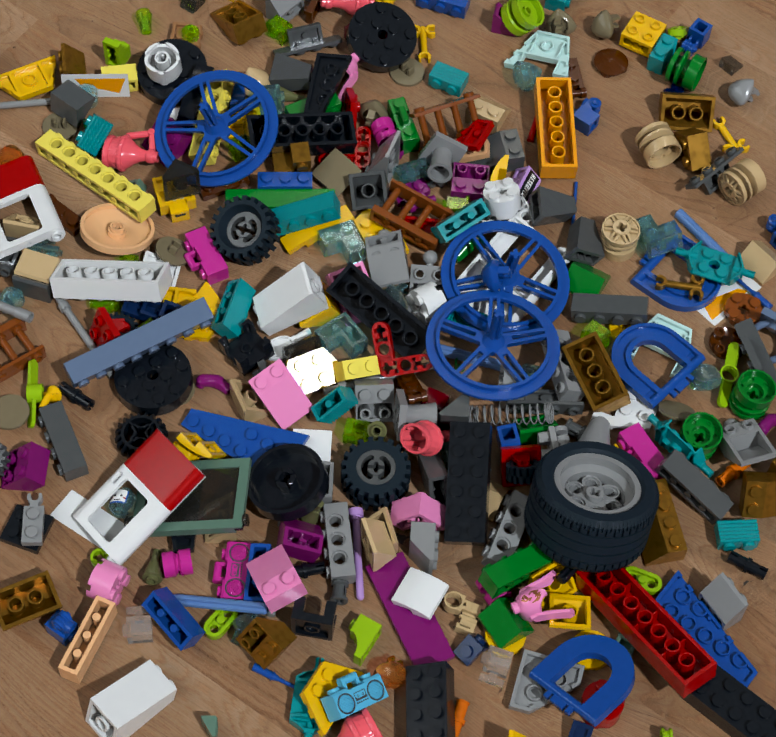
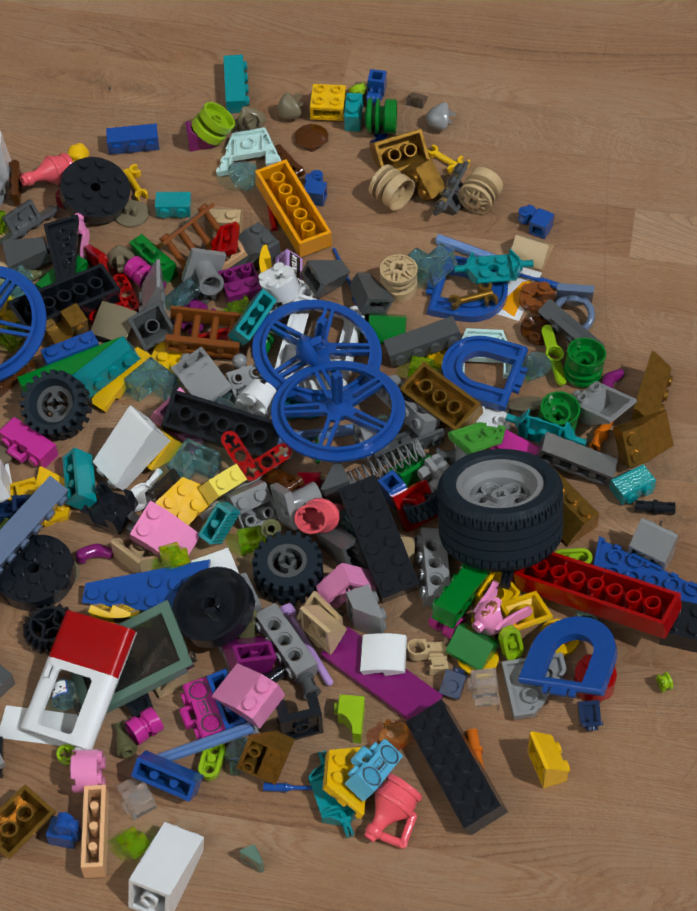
camera: 20 degrees left, 5 degrees down
(115, 665) = (133, 842): none -> clear neon green brick
(278, 417) = (173, 555): none -> clear neon green brick
(540, 635) = (511, 642): none -> lime plate
(610, 425) = (477, 437): none -> bright green tile

